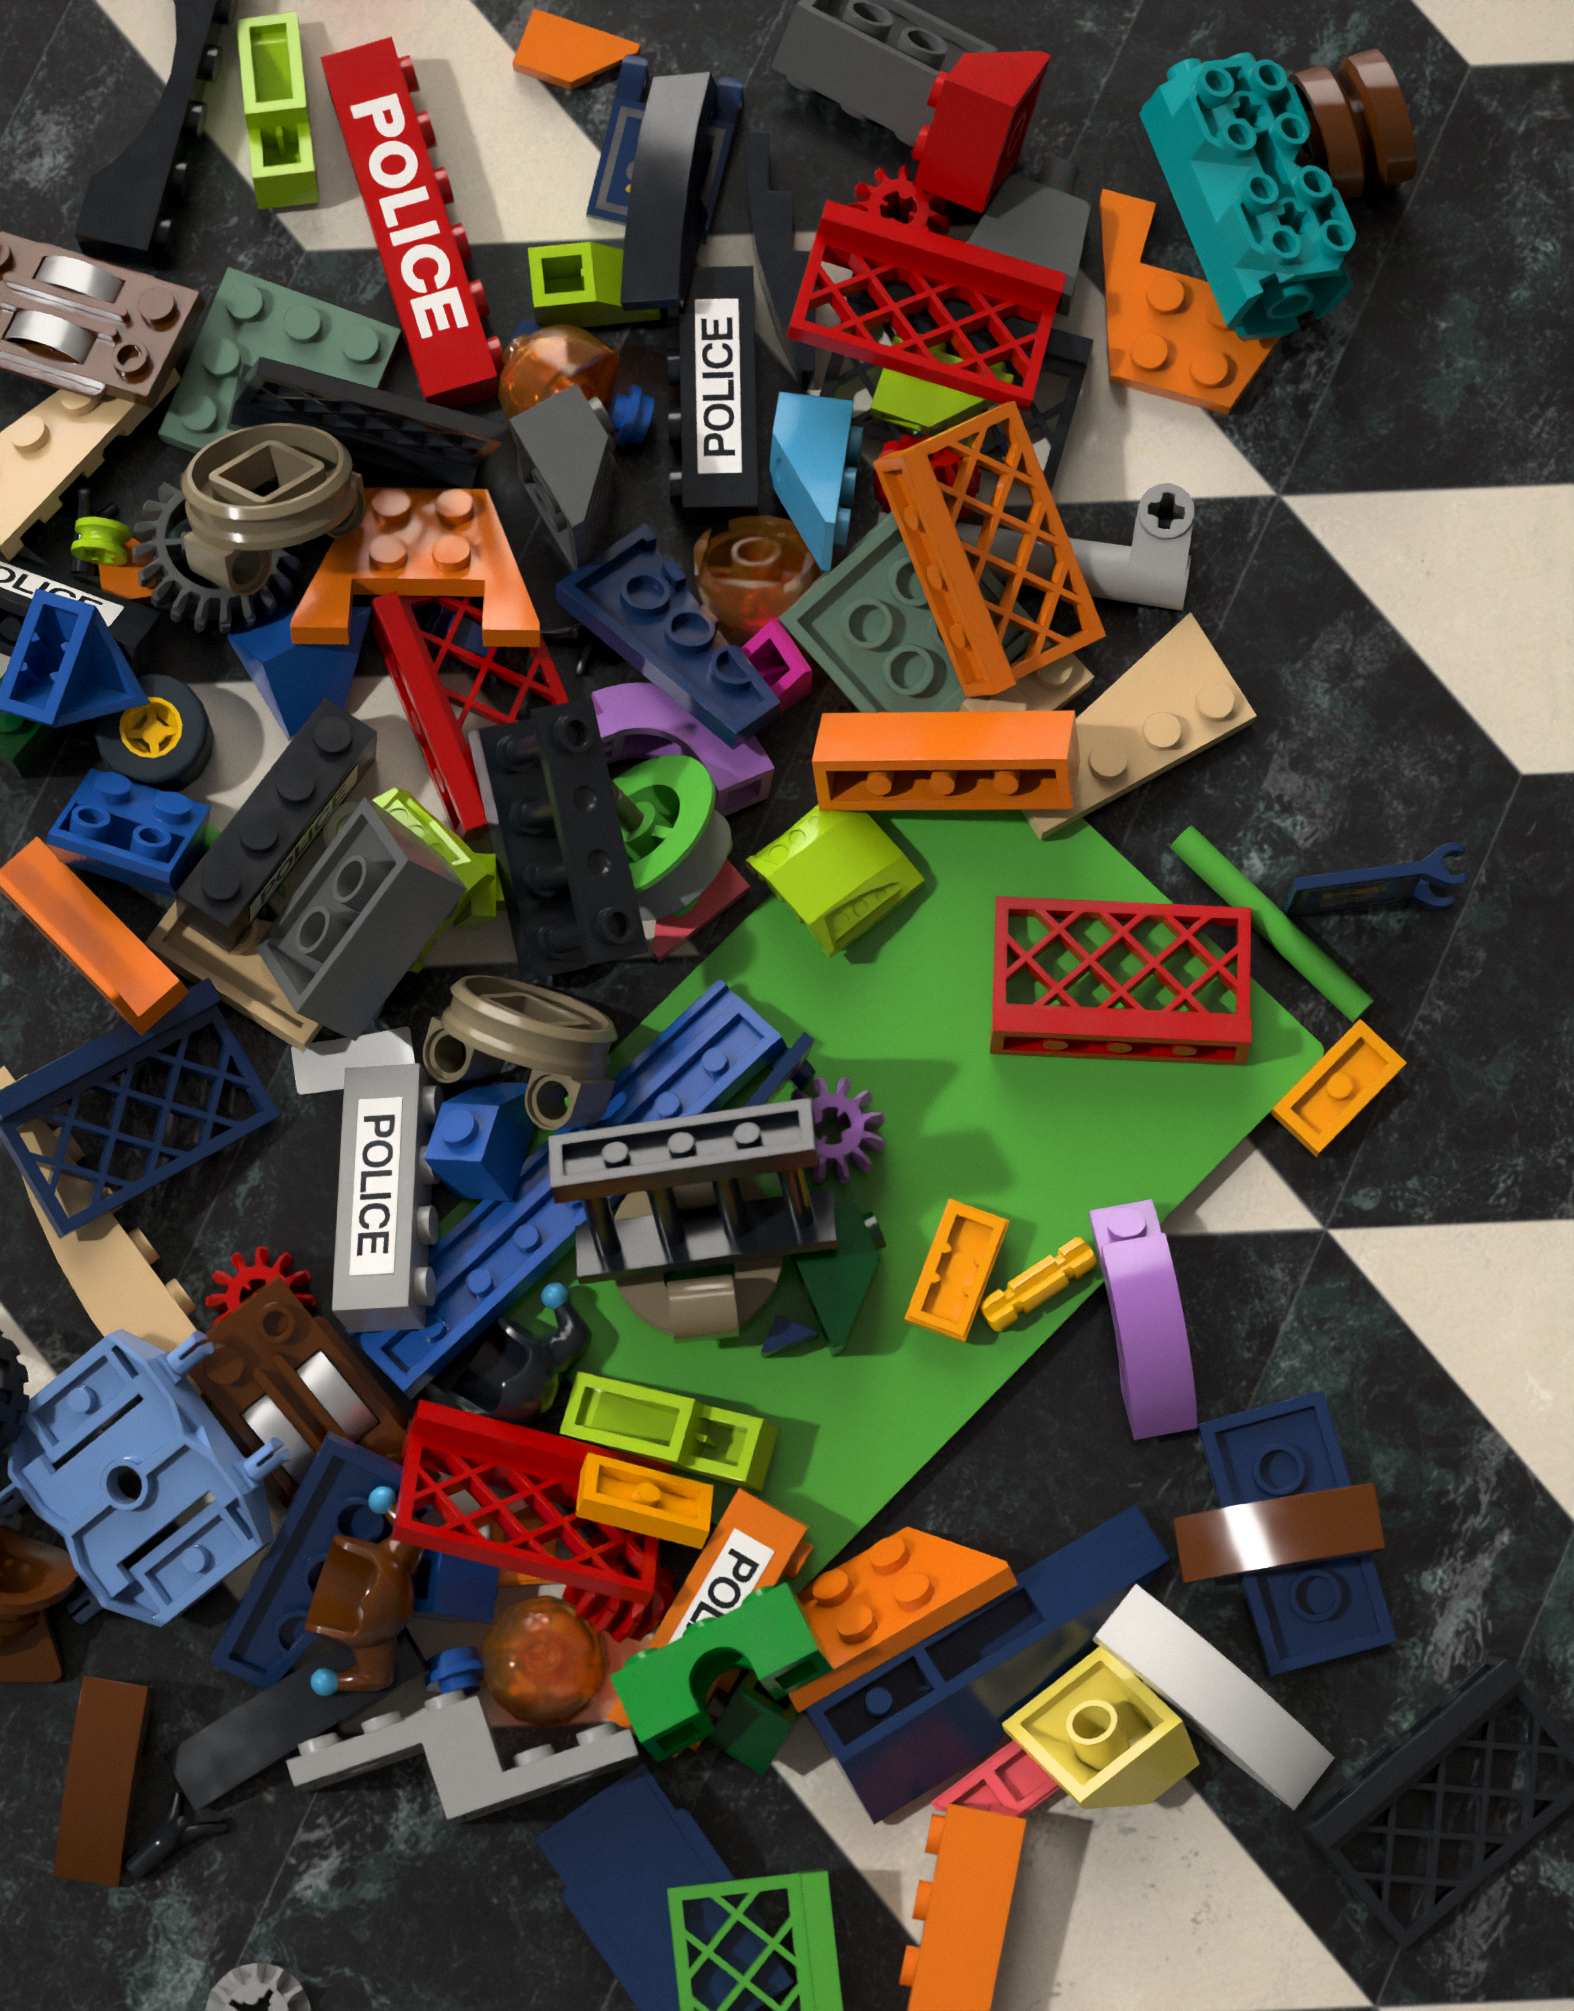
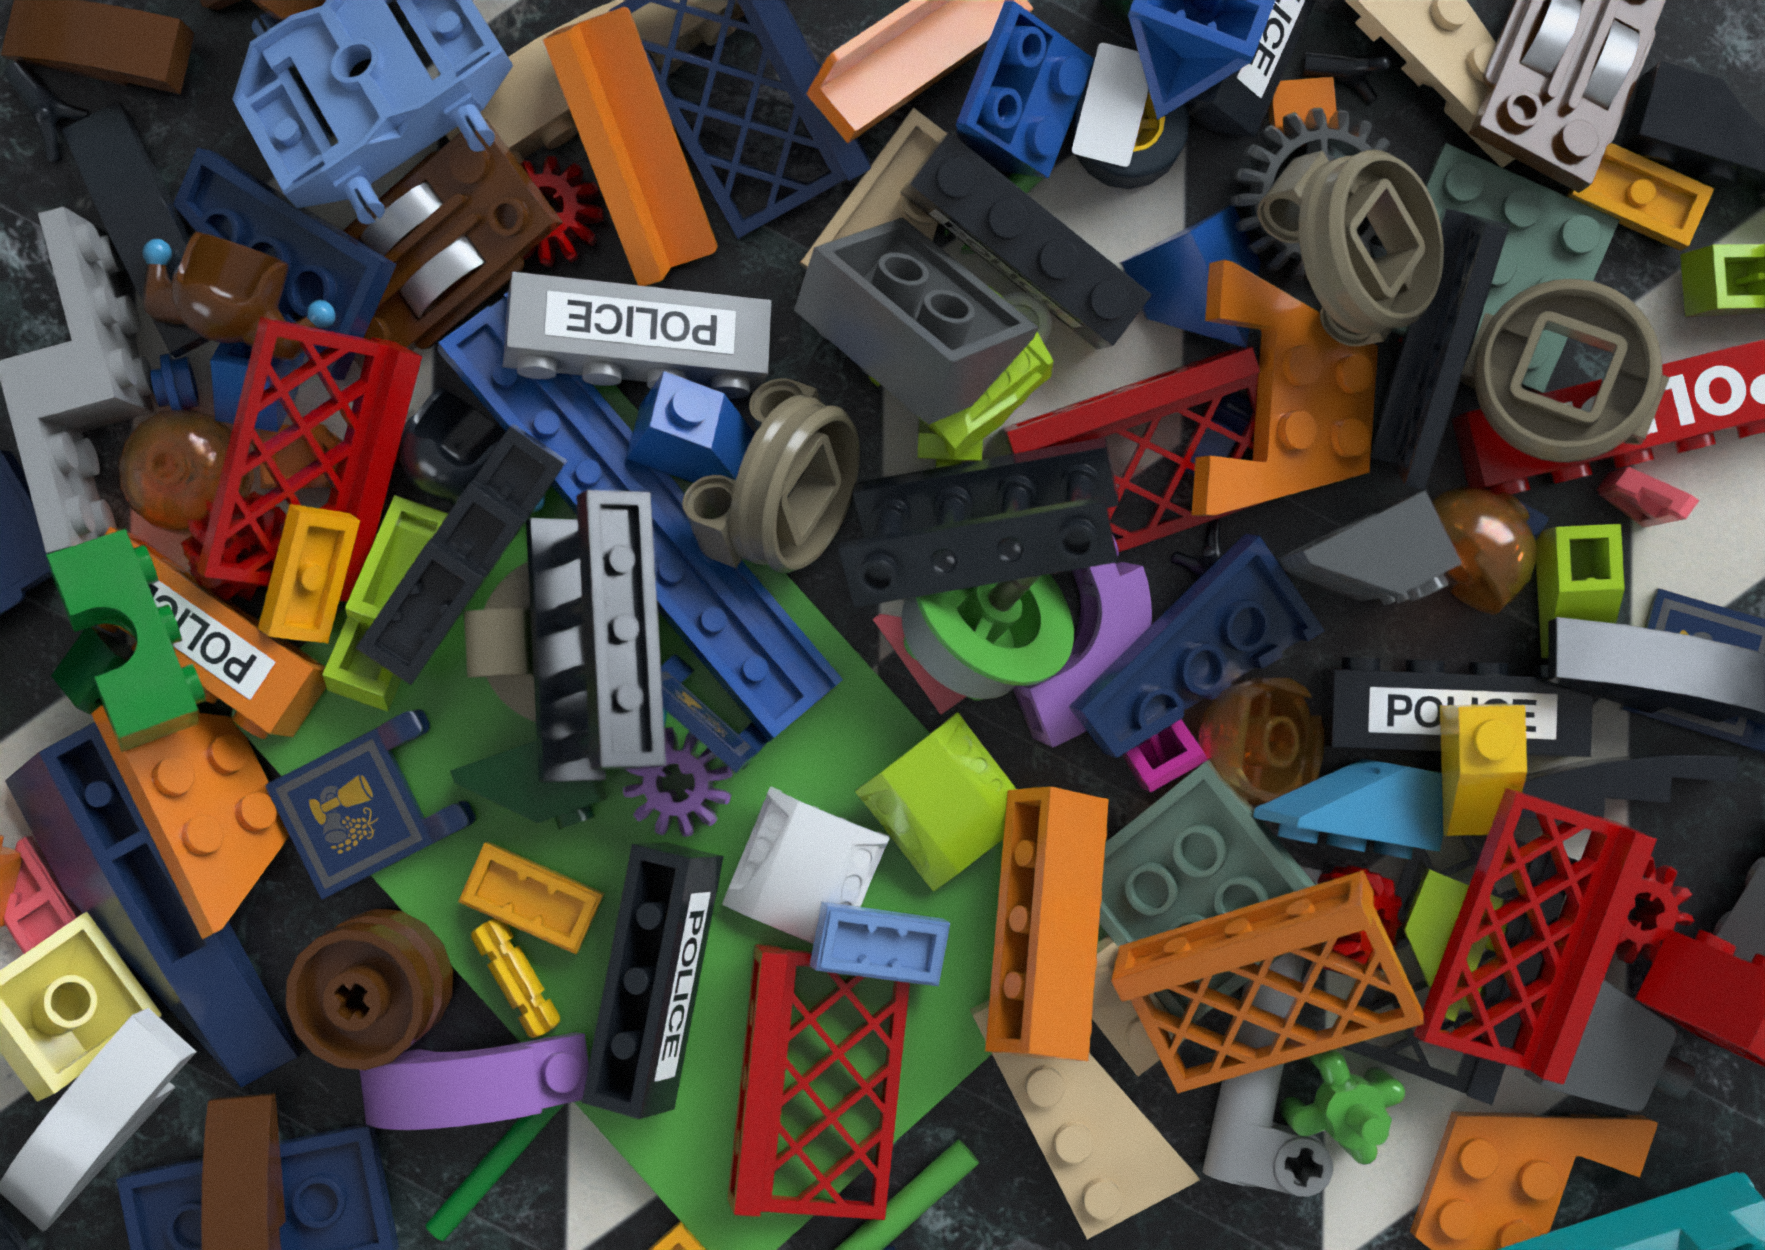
camera: 95 degrees right, 10 degrees up
(101, 541) = (1332, 78): lime bush -> none
(138, 746) = (1112, 106): none -> white sticker
(192, 1211) = (631, 143): none -> orange panel
(205, 240) = (1646, 197): none -> light orange plate
(324, 1062) = (793, 340): white sticker -> none
(403, 248) = (1548, 427): none -> dark tan piece
(500, 228) = (1645, 498): none -> coral tile
(616, 1346) = (461, 554): none -> black slope
(630, 416) = (1438, 621): blue plate -> none
(759, 365) = (1480, 758): none -> yellow slope
(786, 1335) = (478, 724): dark blue piece -> none
(881, 1456) = (356, 811): none -> dark blue flag
(910, 1004) = (800, 860): none -> white slope
(978, 922) = (879, 944): none -> medium blue plate
(1027, 1139) = (652, 979): none -> black brick
(1096, 1429) = (369, 989): none -> reddish brown wheel
(1105, 474) = (1347, 1106): none -> bright green plant
(1237, 1307) = (488, 1172): none -> green bar

